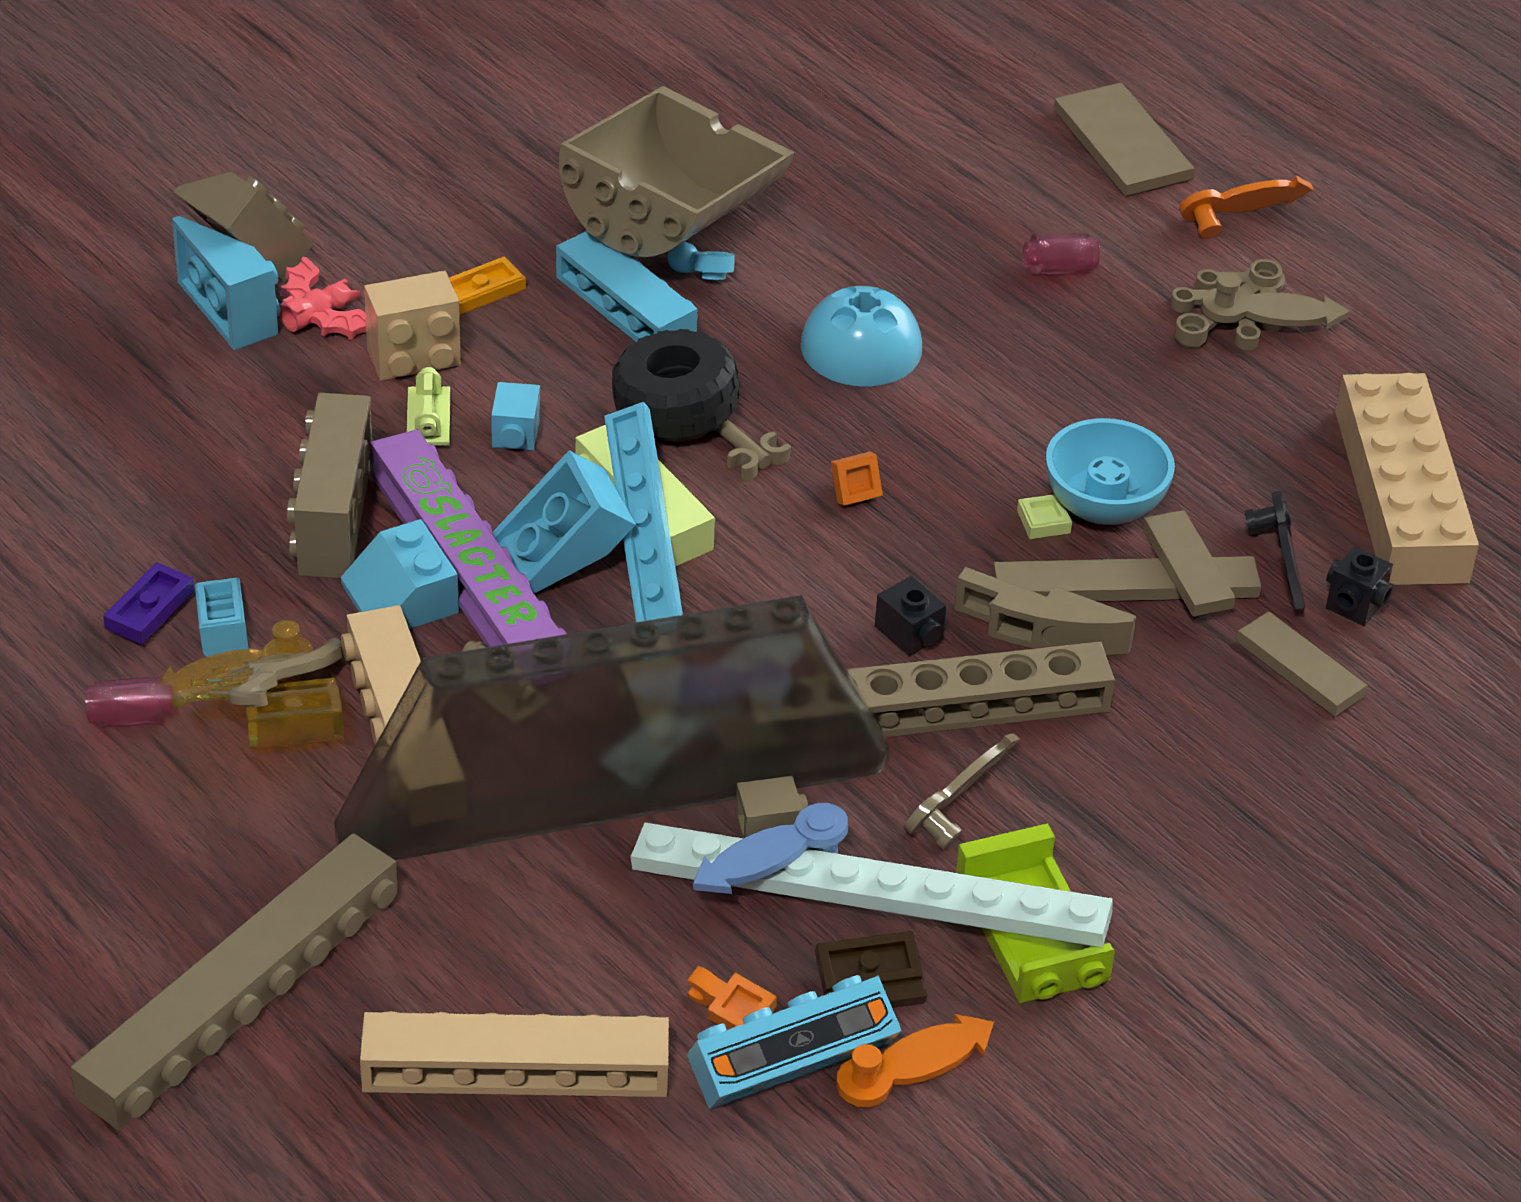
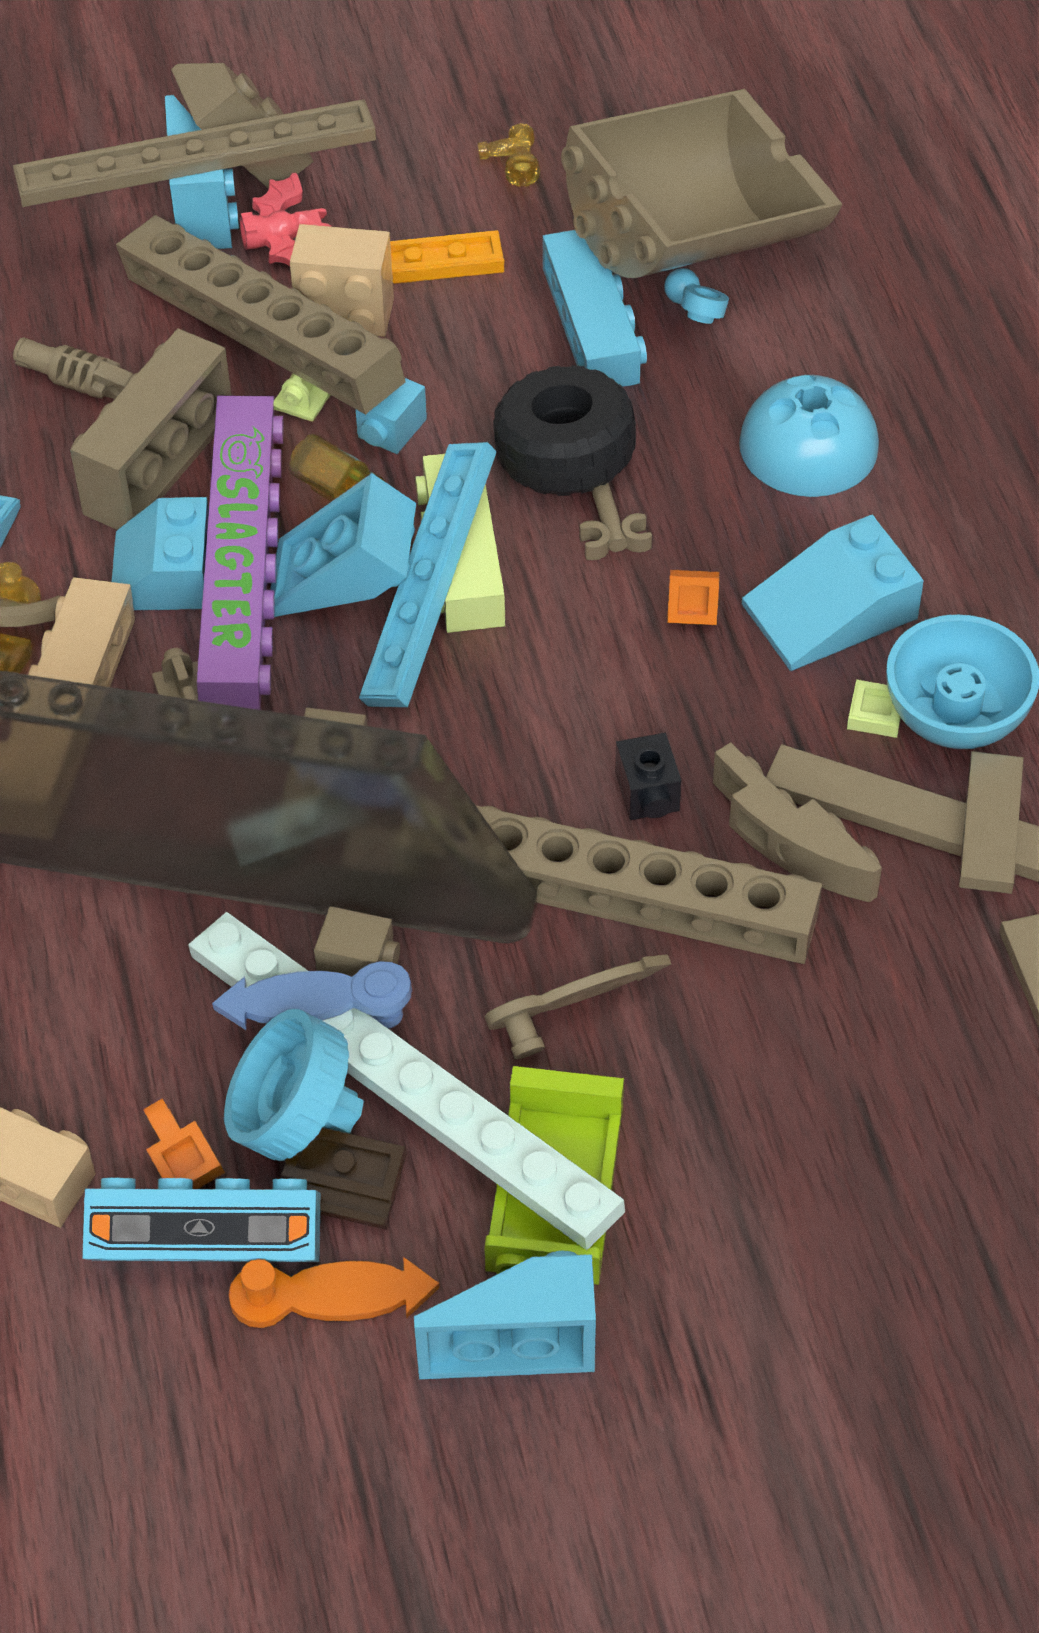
camera: 30 degrees right, 10 degrees up
(216, 463) = (73, 368): none -> dark tan hinge
(232, 255) = (193, 152): none -> dark tan tile
(367, 365) = (263, 314): none -> dark tan brick
(490, 202) = (522, 166): none -> clear yellow piece
(512, 468) = (326, 467): none -> clear yellow brick
(781, 901) = (290, 1087): none -> medium azure piece
(964, 442) = (836, 594): none -> medium azure slope
(1090, 1014) = (514, 1323): none -> medium azure slope

